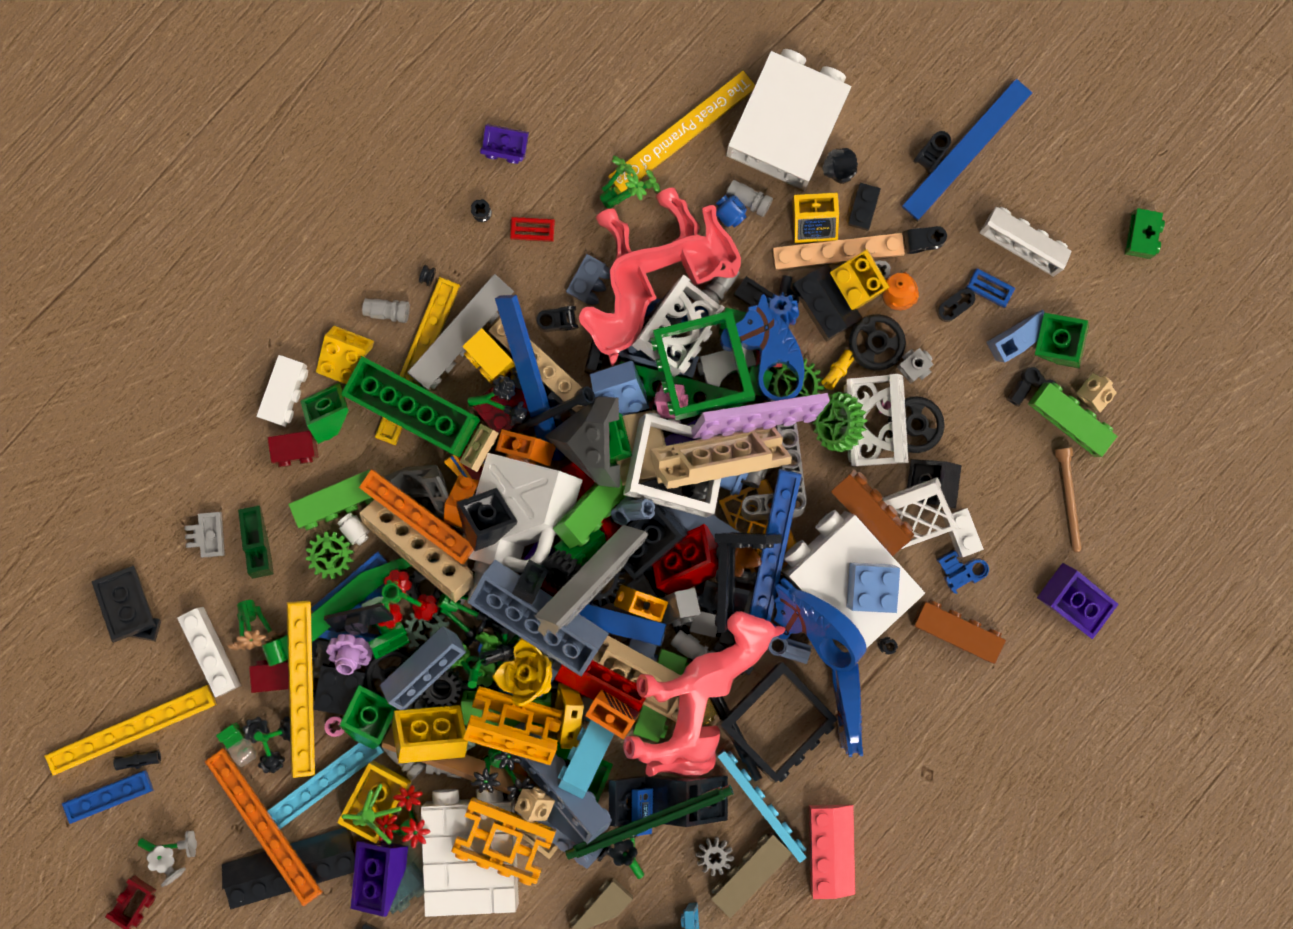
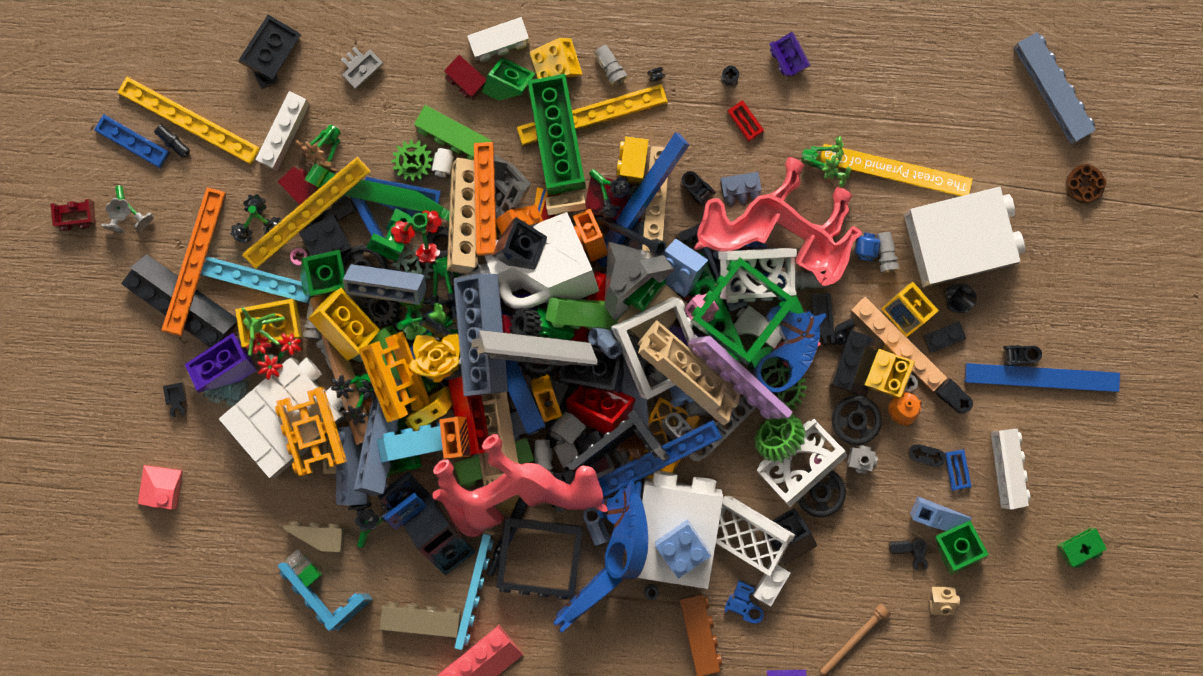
camera: 50 degrees right, 0 degrees up
(237, 745) = (234, 201): leg -> none
(255, 542) = (381, 103): dark green slope -> none
(348, 653) = (355, 226): lavender plant -> none
(358, 619) = (384, 214): black piece -> none
(449, 344) = (617, 127): light grey brick -> none
(530, 581) = (500, 309): black plate -> none
(534, 805) = (351, 433): tan brick -> none
(650, 821) = (402, 521): dark green piece -> none
(714, 848) = (408, 590): light grey gear -> none
(784, 307) = (828, 336): blue gear -> none
(838, 370) = (815, 408): yellow pin -> none
(873, 512) = (735, 509): dark orange brick -> none
(1072, 419) = (911, 598): bright green brick -> none

